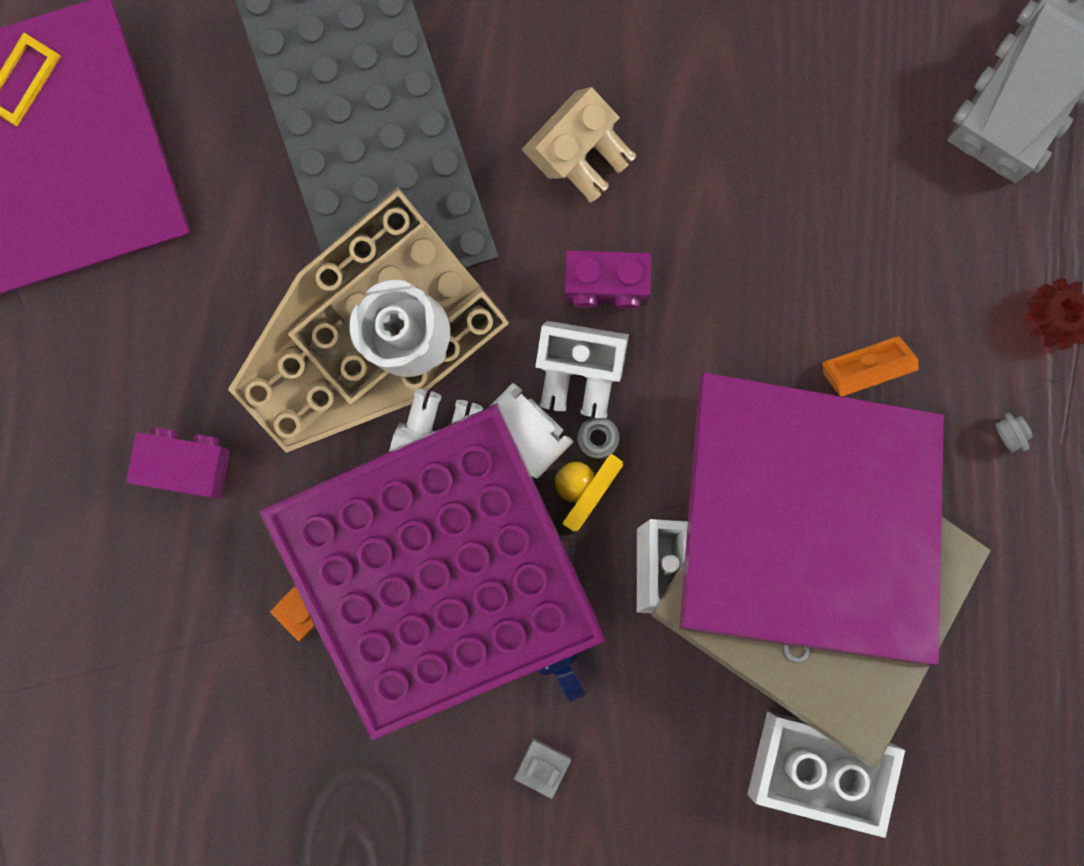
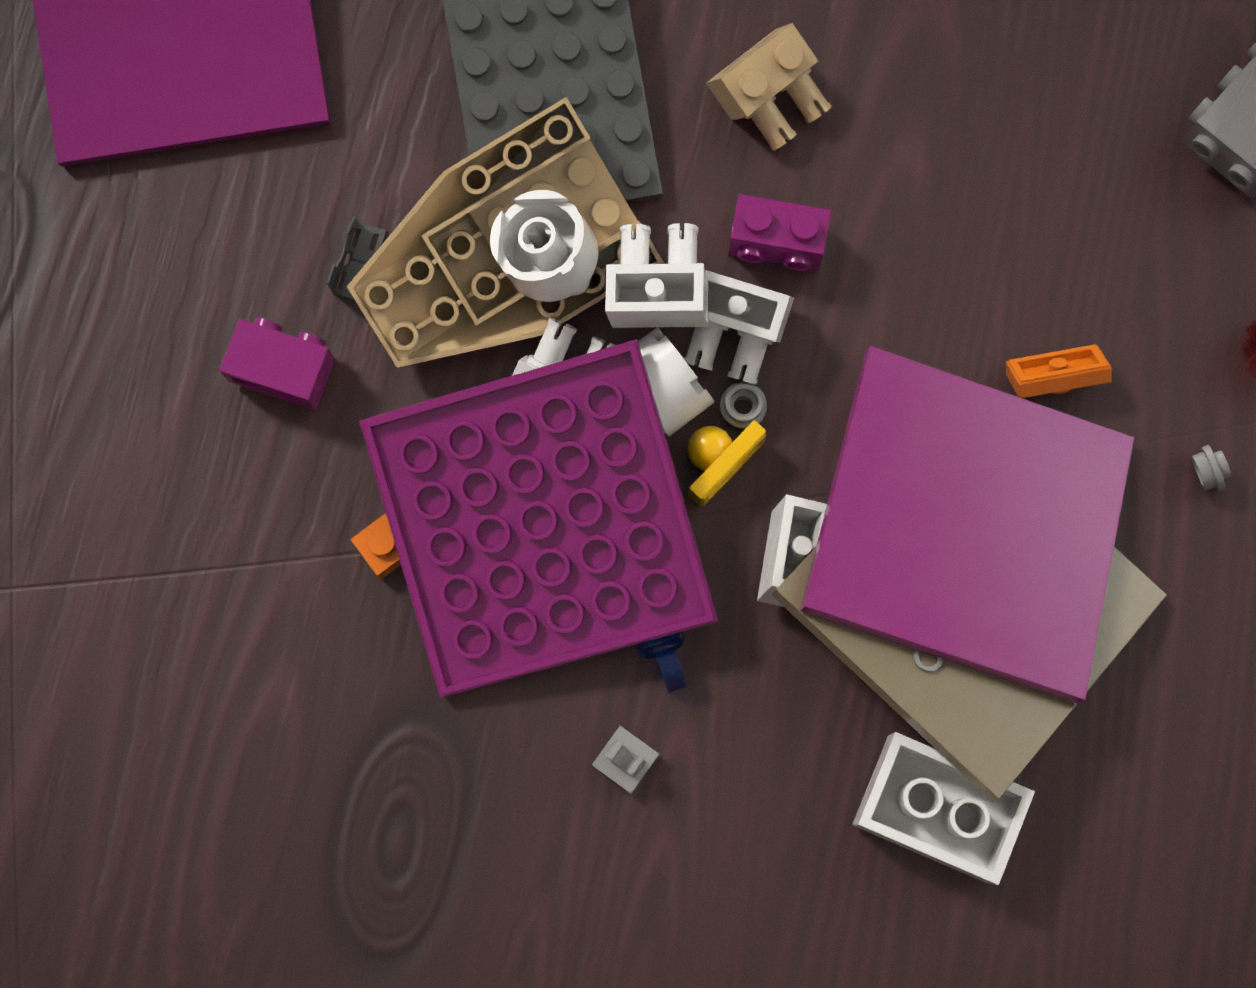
camera: 15 degrees right, 5 degrees down
(237, 349) = (360, 253): none -> dark grey piece
(511, 357) = (657, 293): none -> white brick

